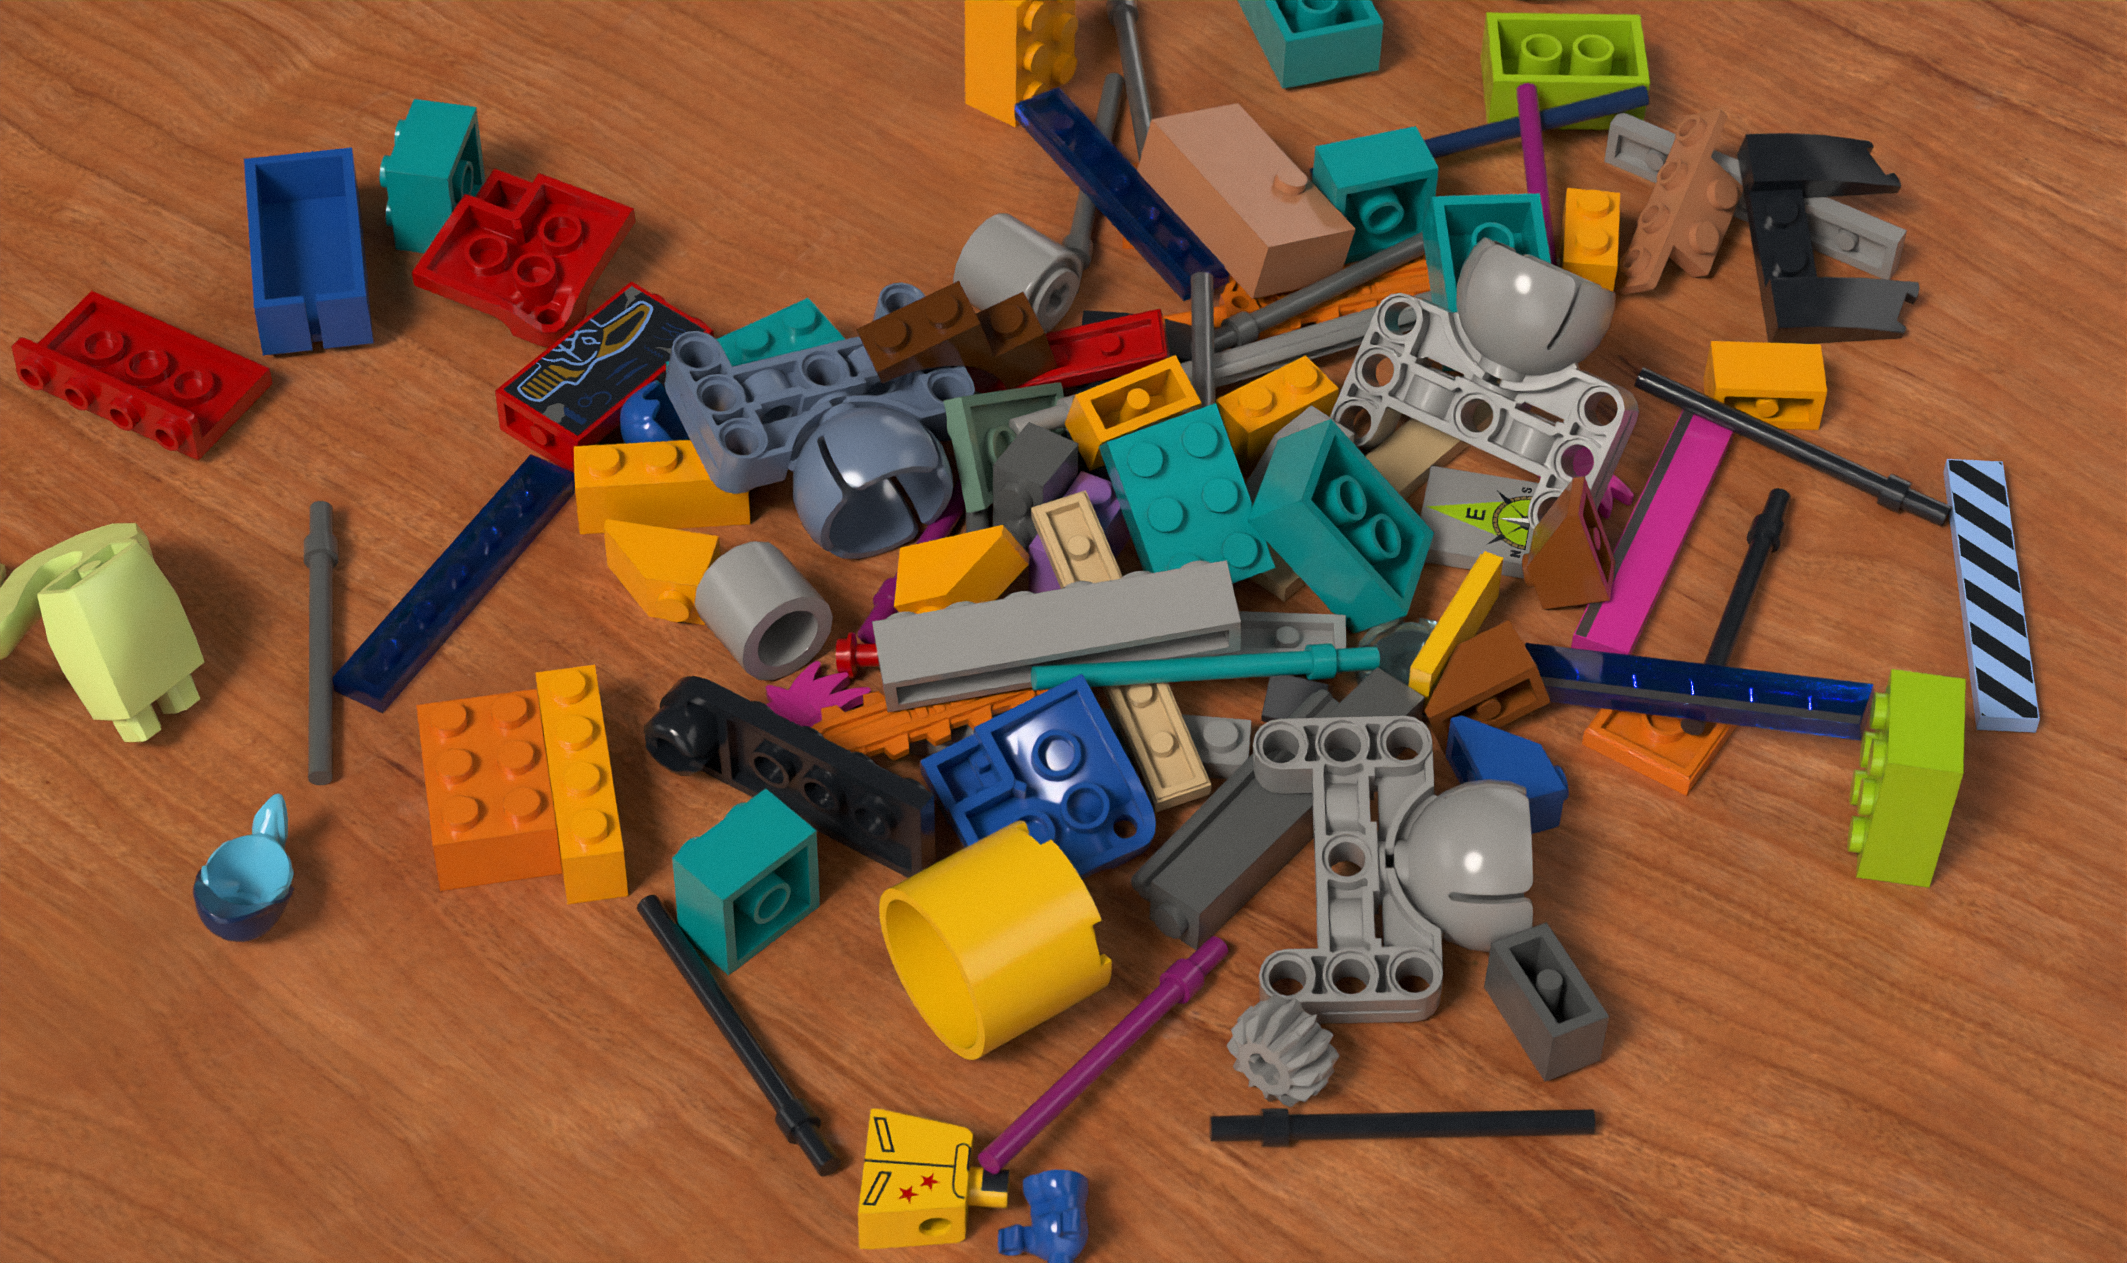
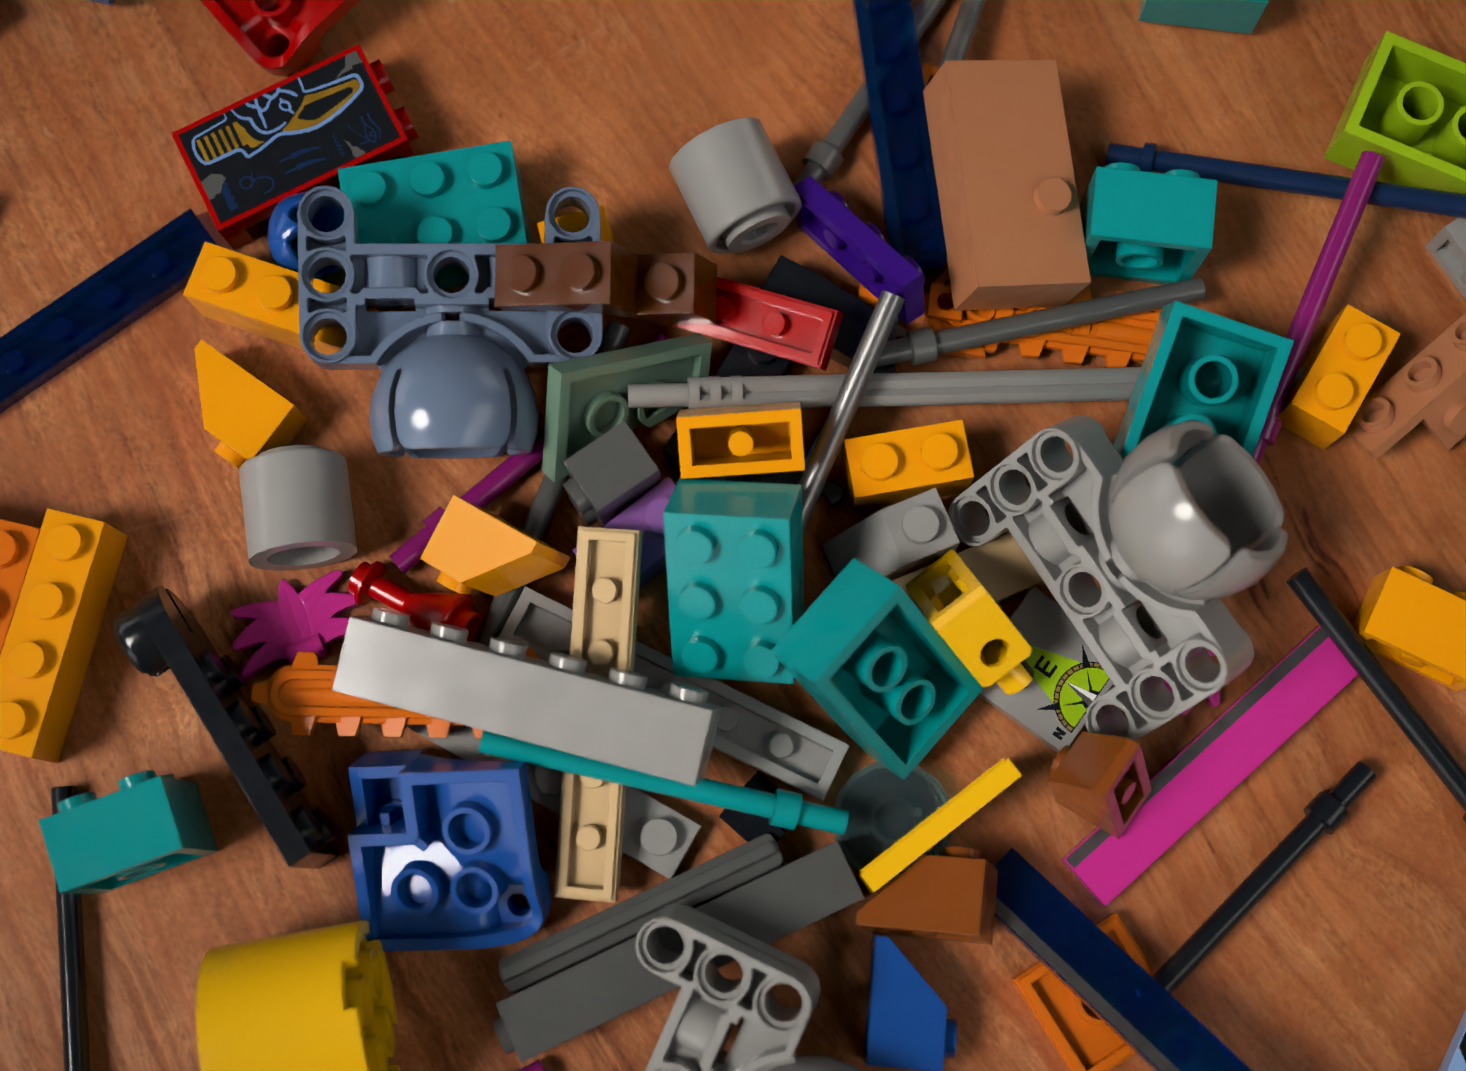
camera: 30 degrees right, 30 degrees up
(1146, 279) = (860, 248): none -> dark purple plate
(1415, 470) = (972, 624): none -> yellow torso

